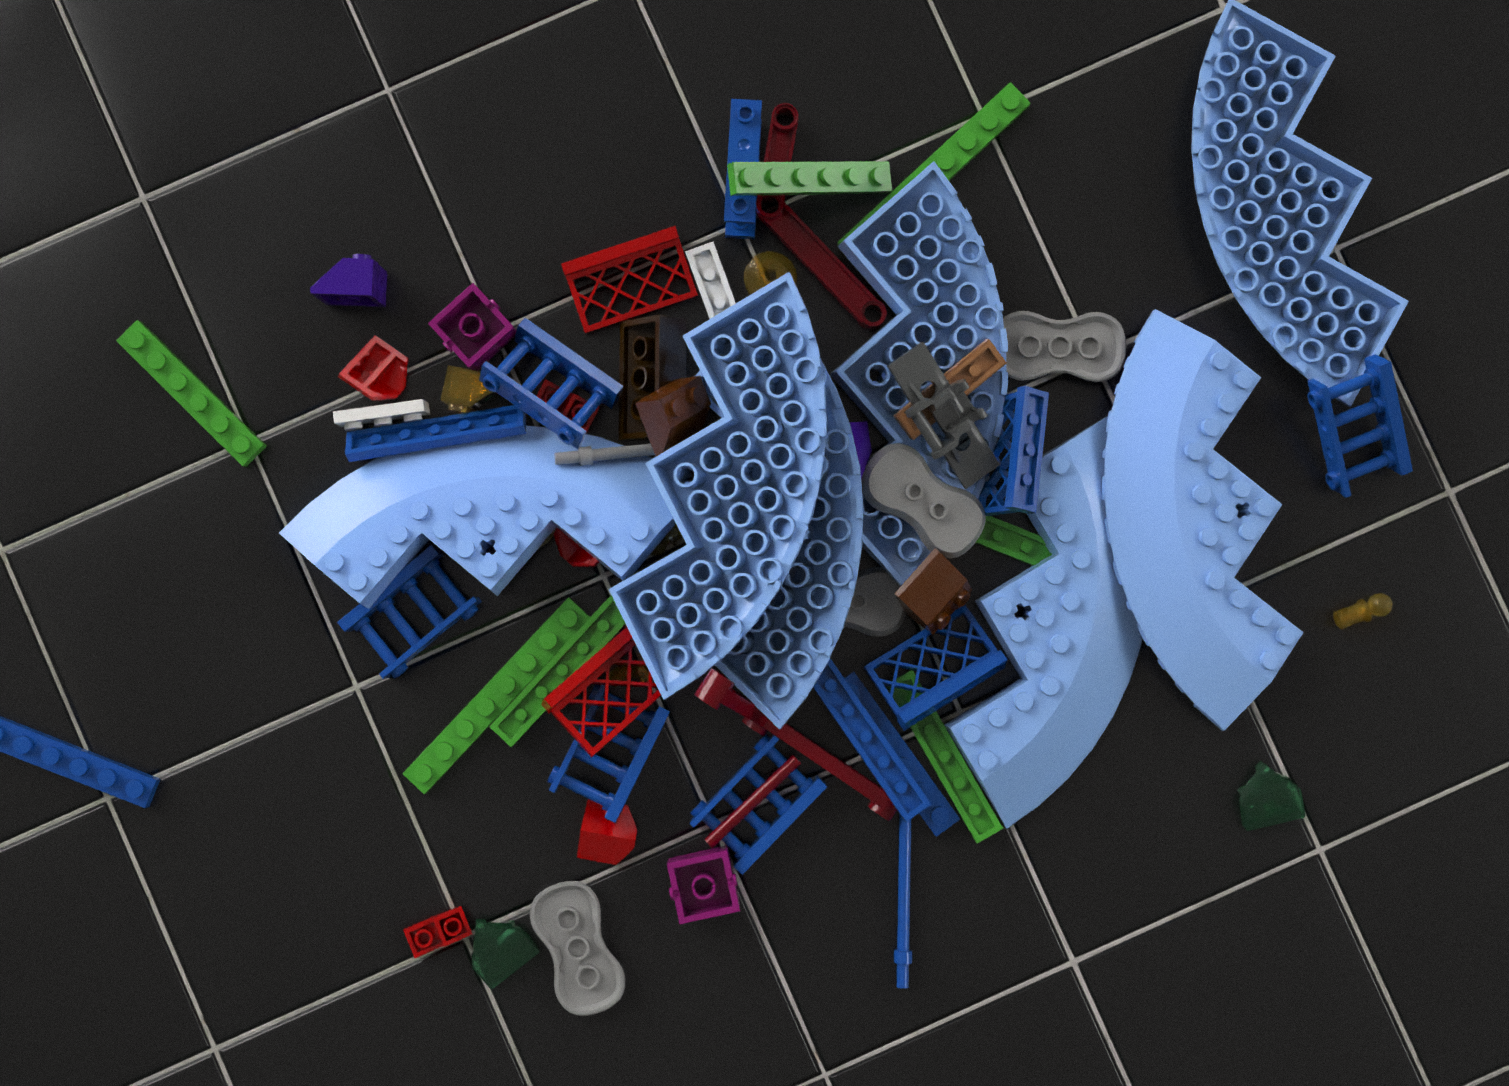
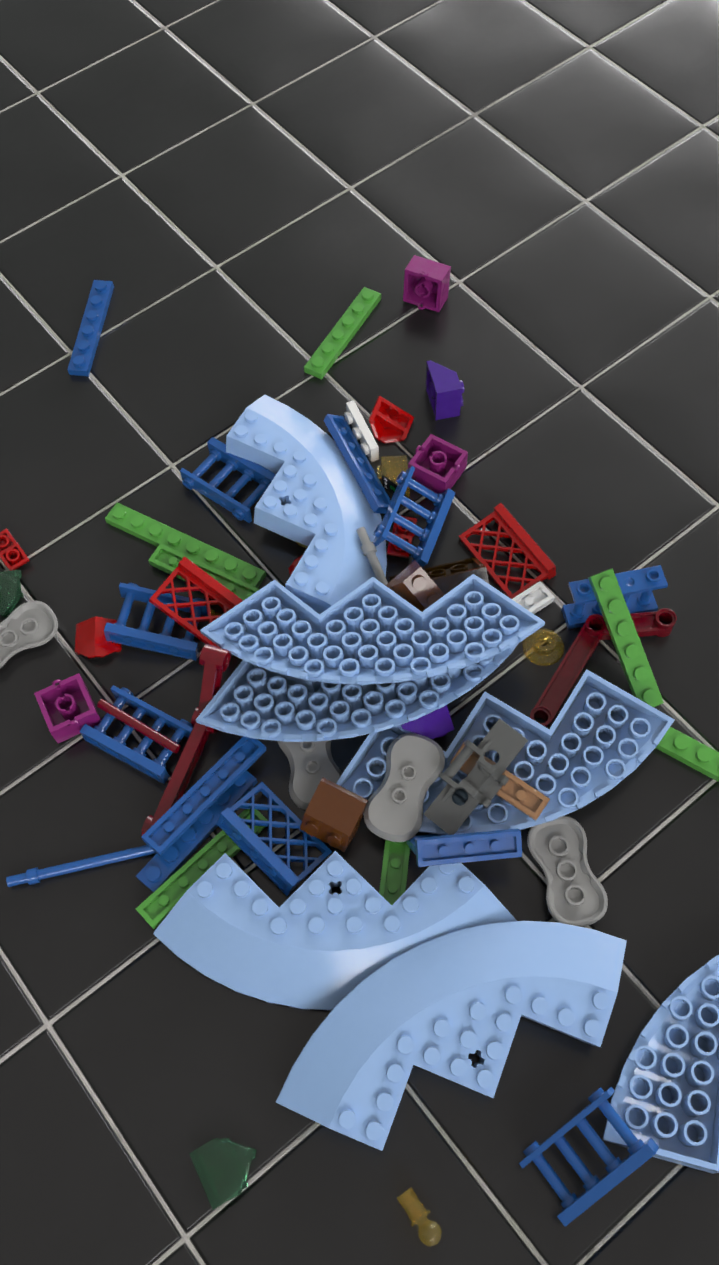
camera: 80 degrees right, 25 degrees down
(148, 248) = (426, 283): none -> magenta brick

